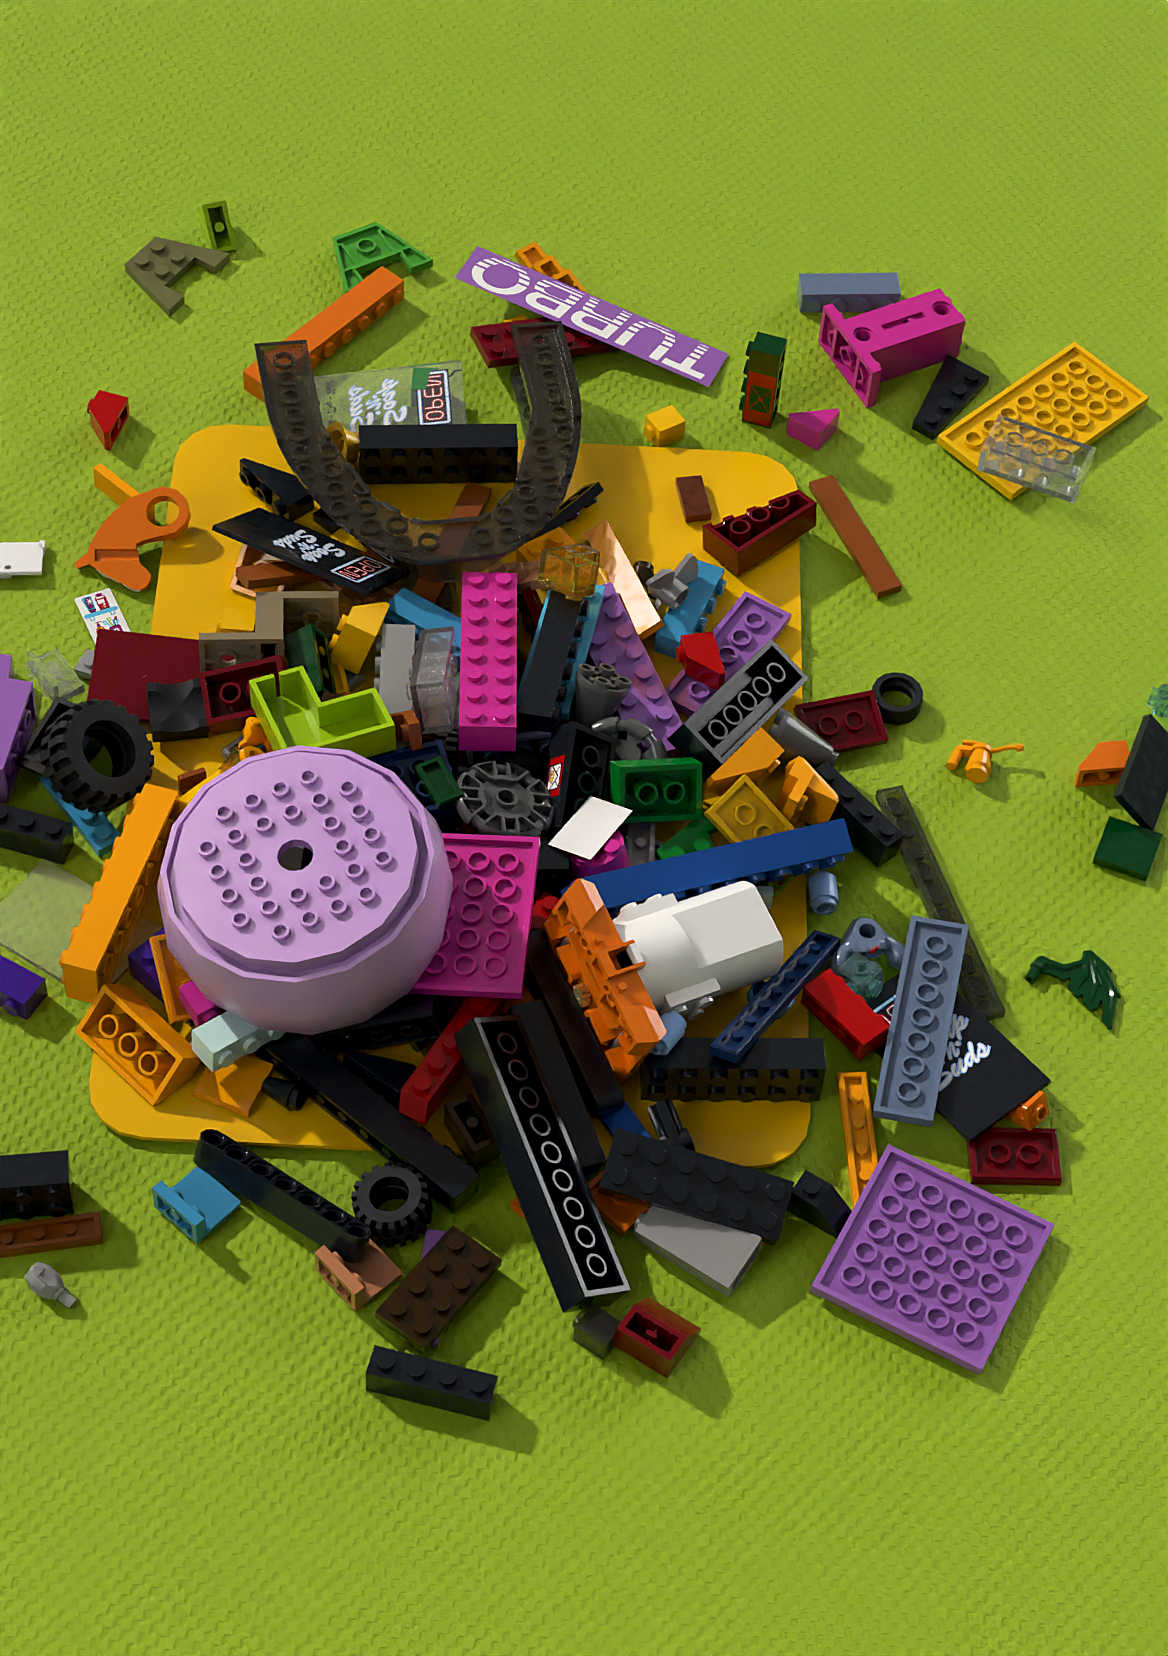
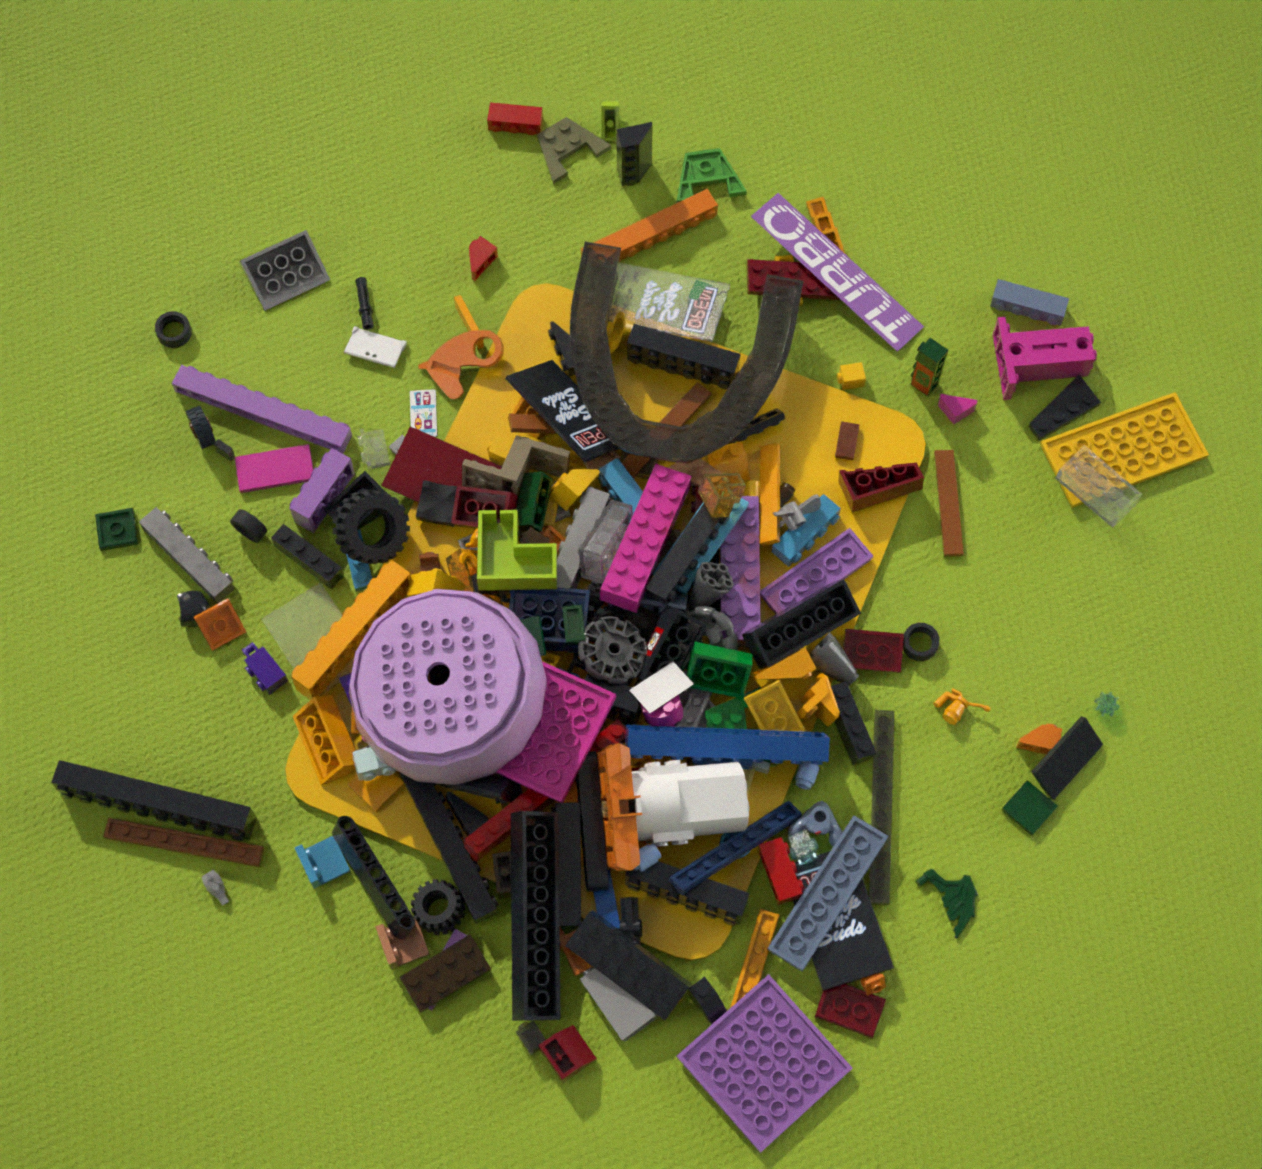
camera: 25 degrees right, 15 degrees up
(86, 253) = (515, 118): none -> red brick
(268, 242) = (634, 152): none -> black slope
(286, 1093) = (403, 806): black cone -> none
(408, 729) = (567, 574): dark orange bracket -> none
(431, 1383) = (416, 1036): black brick -> none
(701, 659) = (794, 574): red slope -> none

